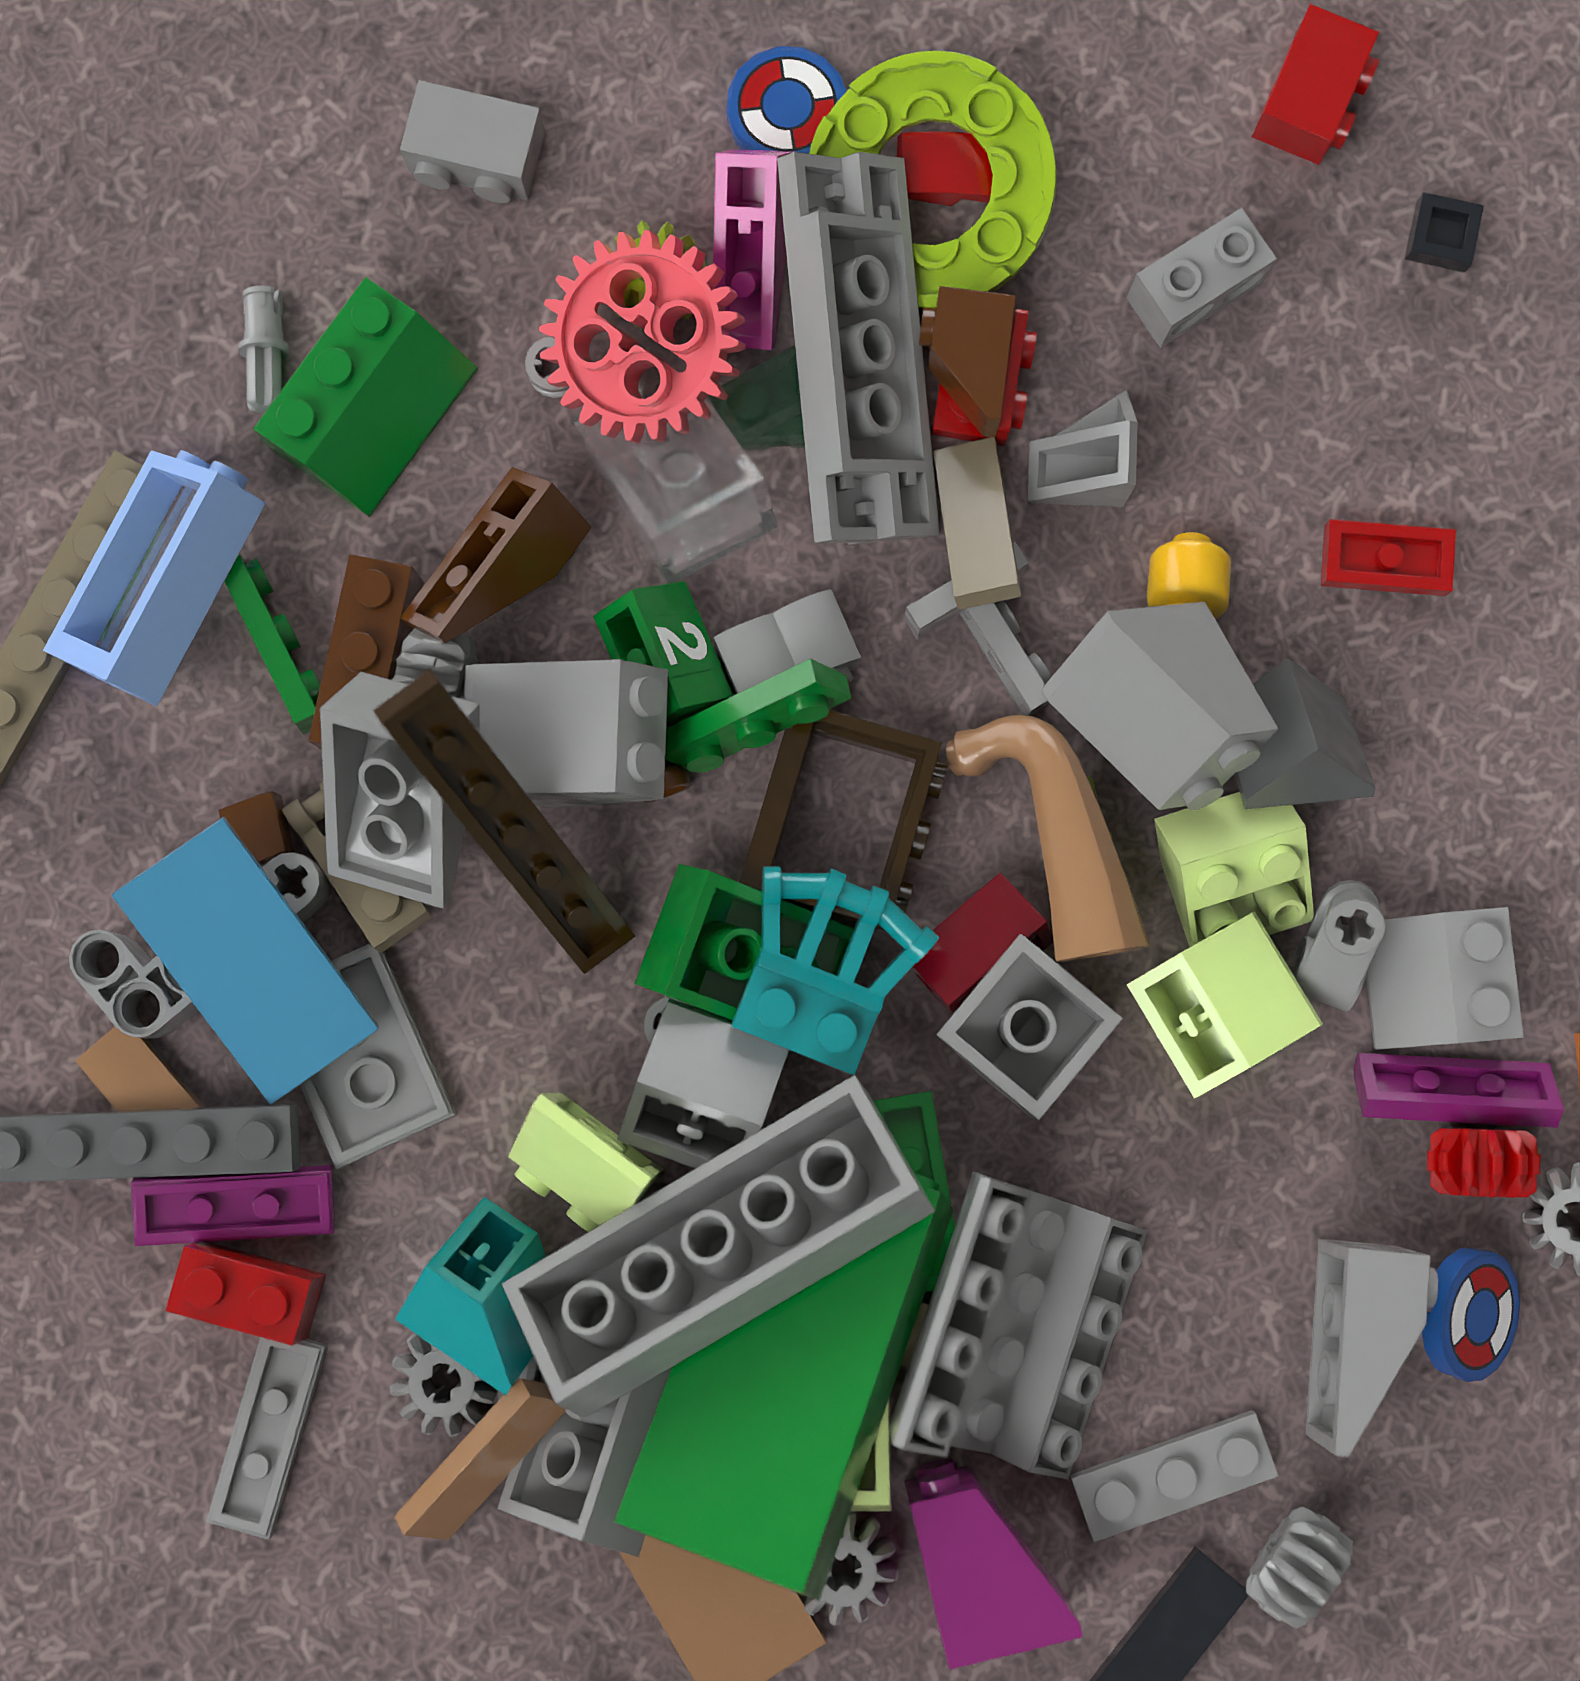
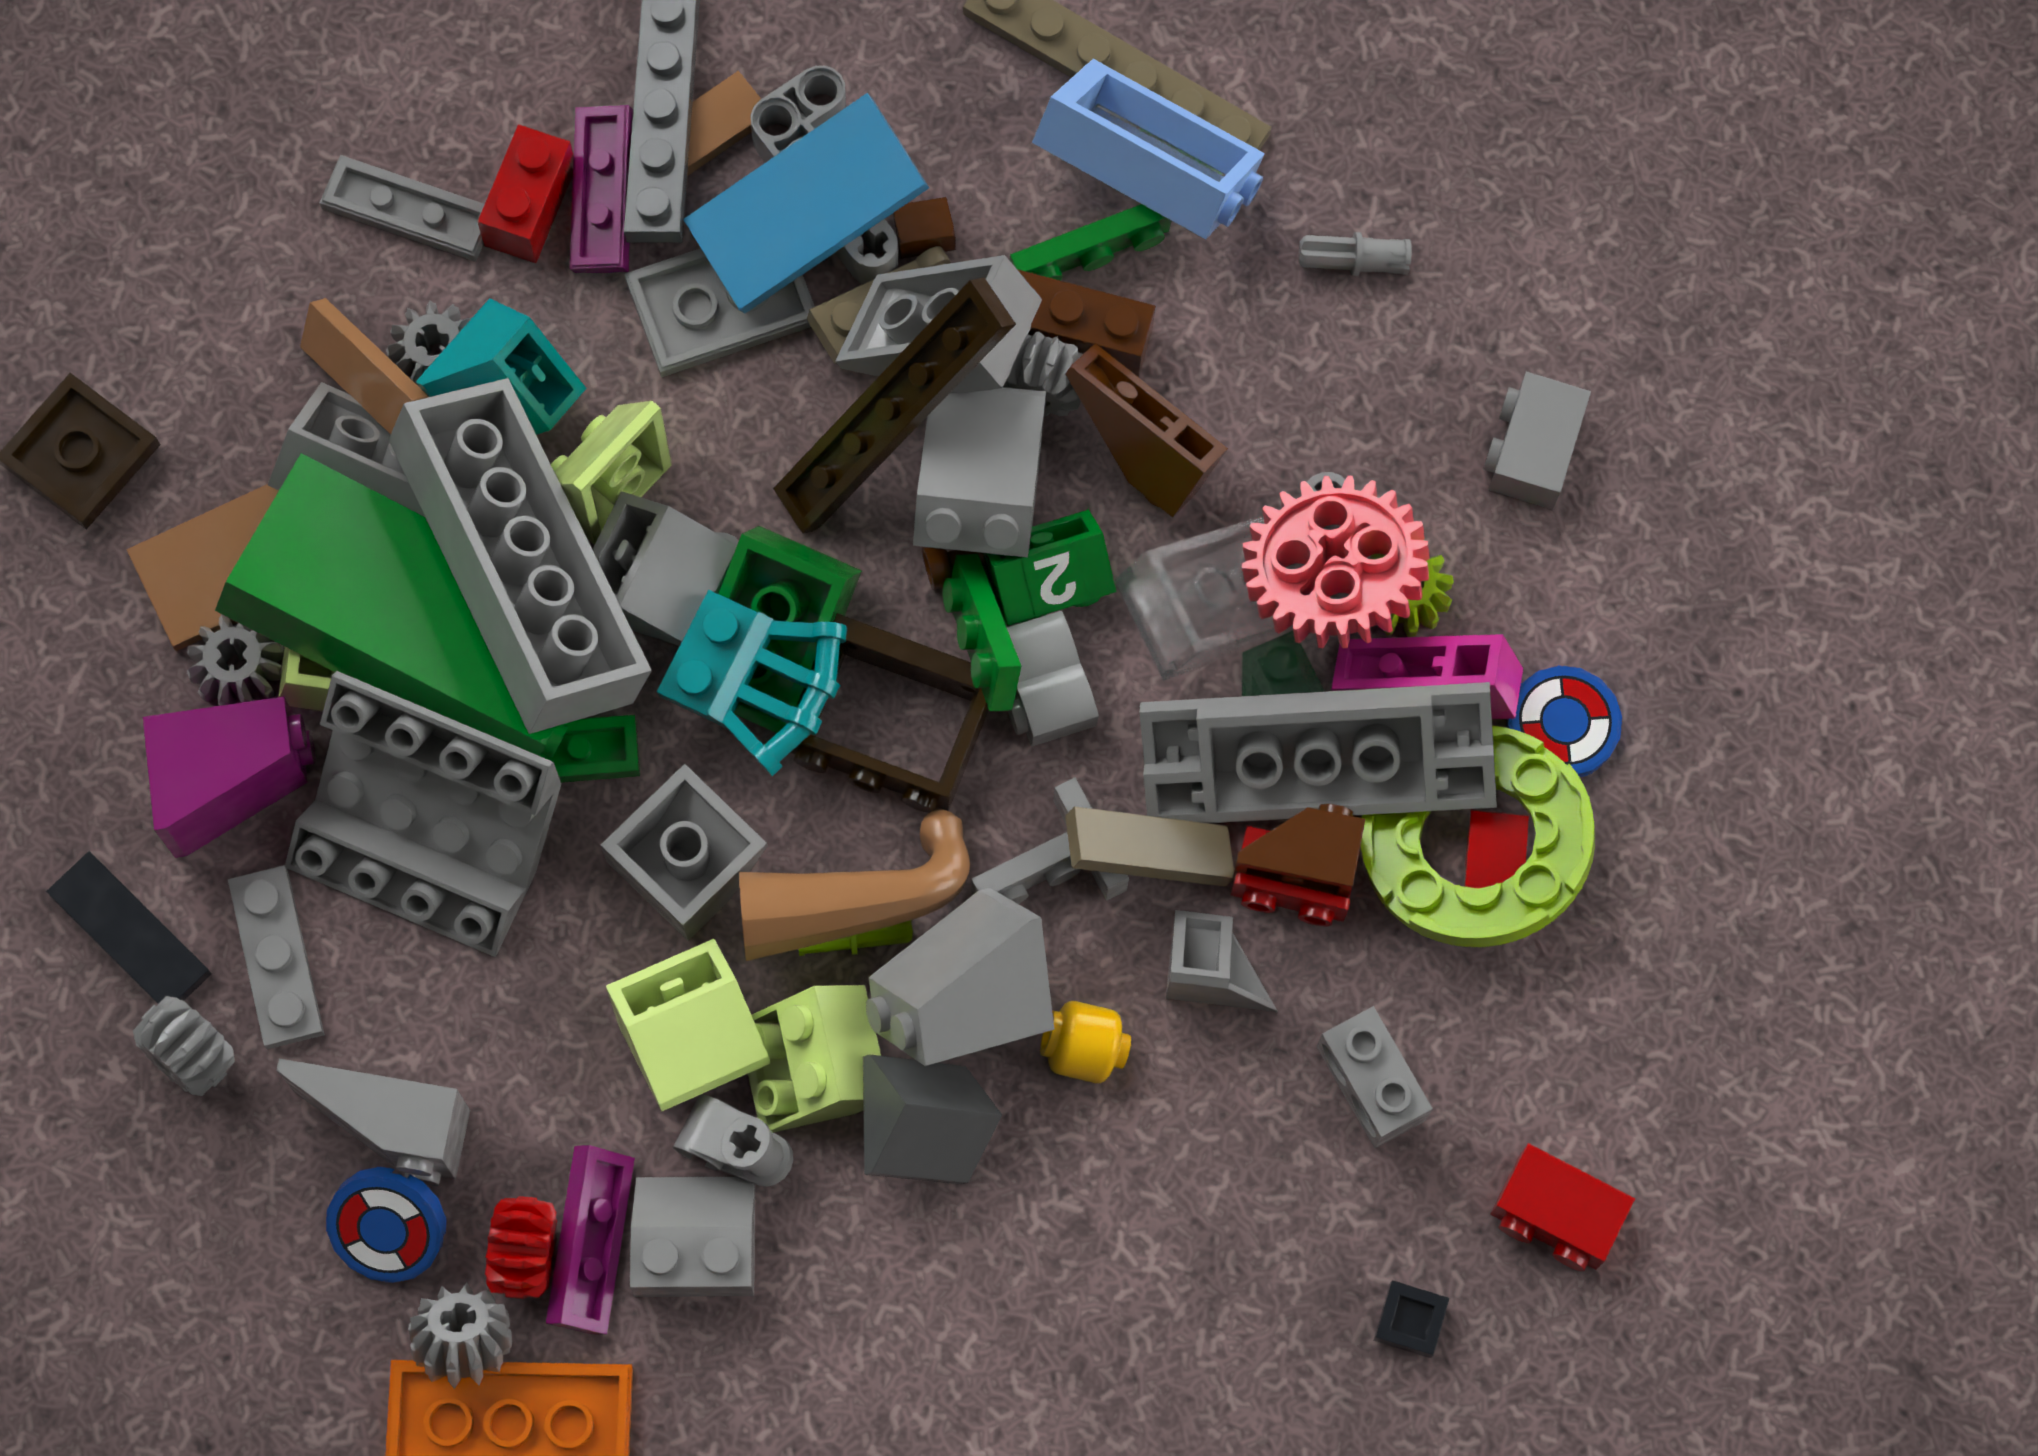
camera: 90 degrees right, 10 degrees down
(366, 397) = (1303, 335): green slope -> none
(976, 939) = (773, 815): dark red hinge -> none
(1388, 557) = (1096, 1232): red plate -> none

